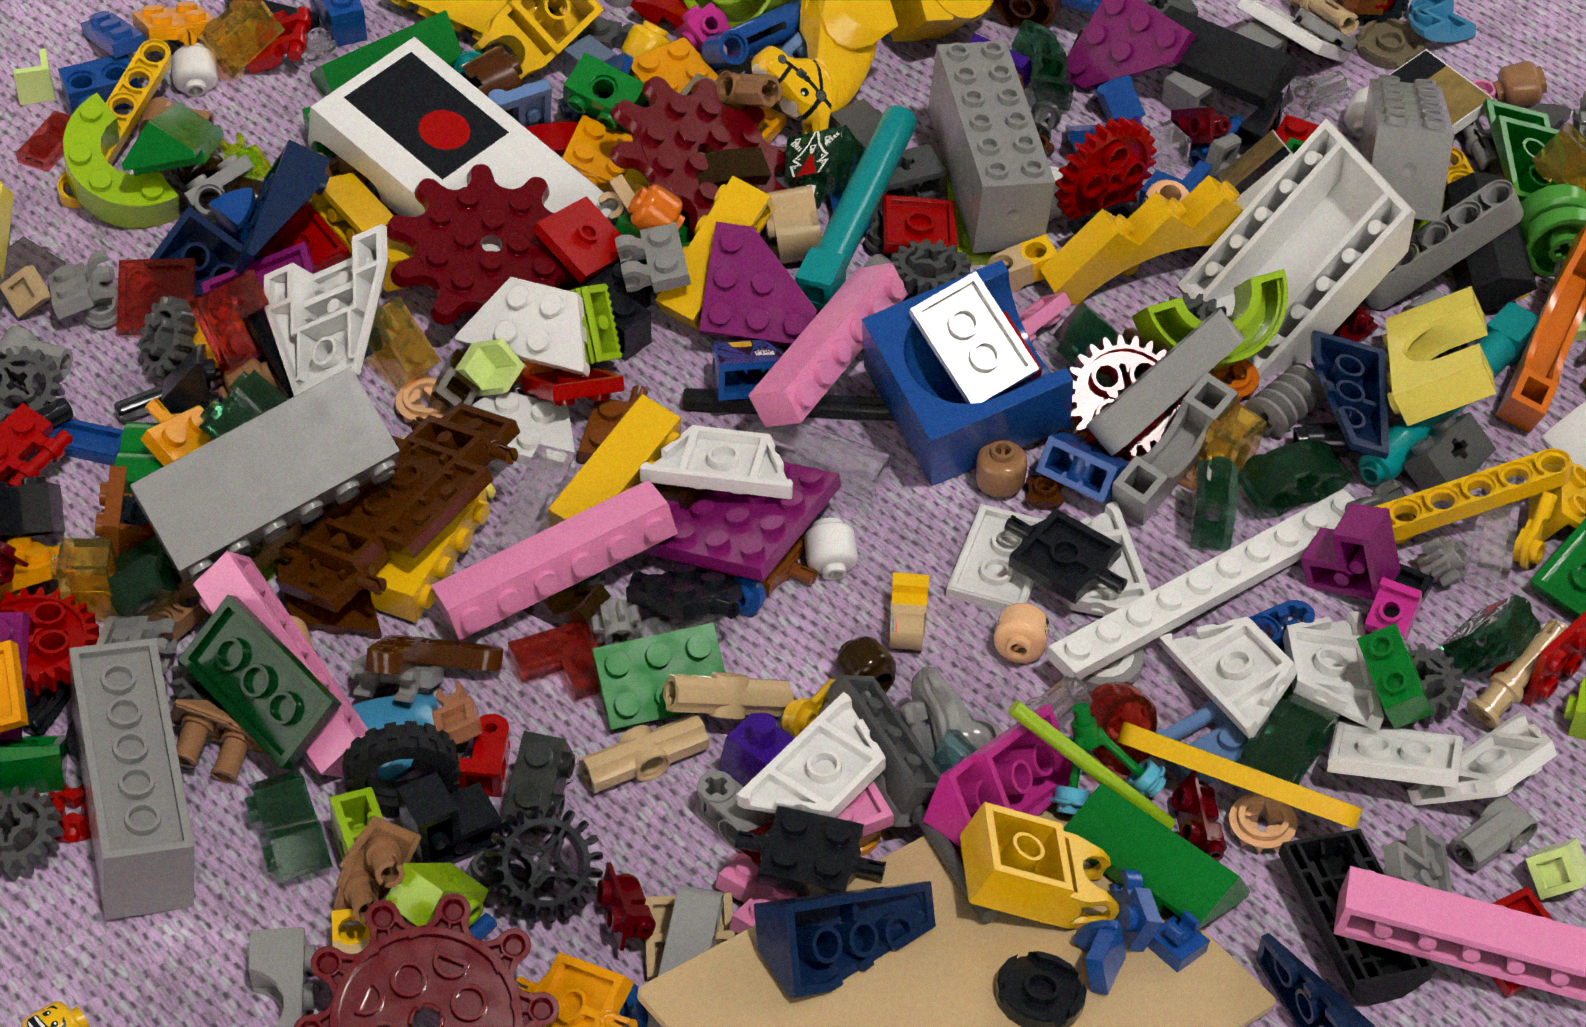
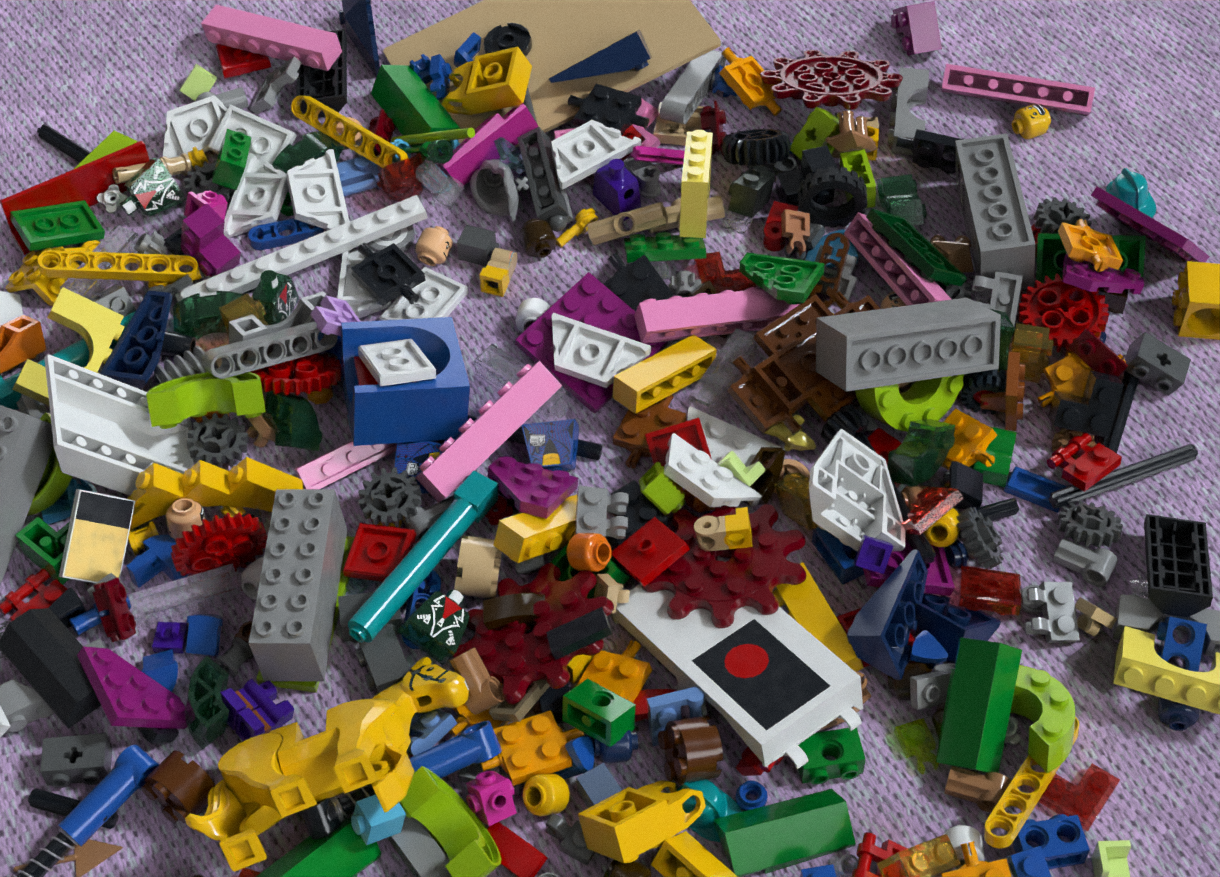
camera: 165 degrees left, 5 degrees up
(220, 904) = (931, 150): none -> black plate
(303, 248) = (873, 554): none -> dark purple tile
(463, 599) = (782, 277): none -> green plate
(490, 243) = (724, 531): none -> leg
(629, 734) = (695, 184): none -> light yellow arch
(640, 108) = (579, 633): none -> black tile
(703, 822) = (658, 155): none -> dark pink axle
(954, 644) = (476, 245): none -> dark grey brick
(1058, 703) = (433, 153): none -> clear green bush
(1077, 418) = (332, 314): none -> lavender plate
(1469, 722) = (197, 157): none -> yellow plate

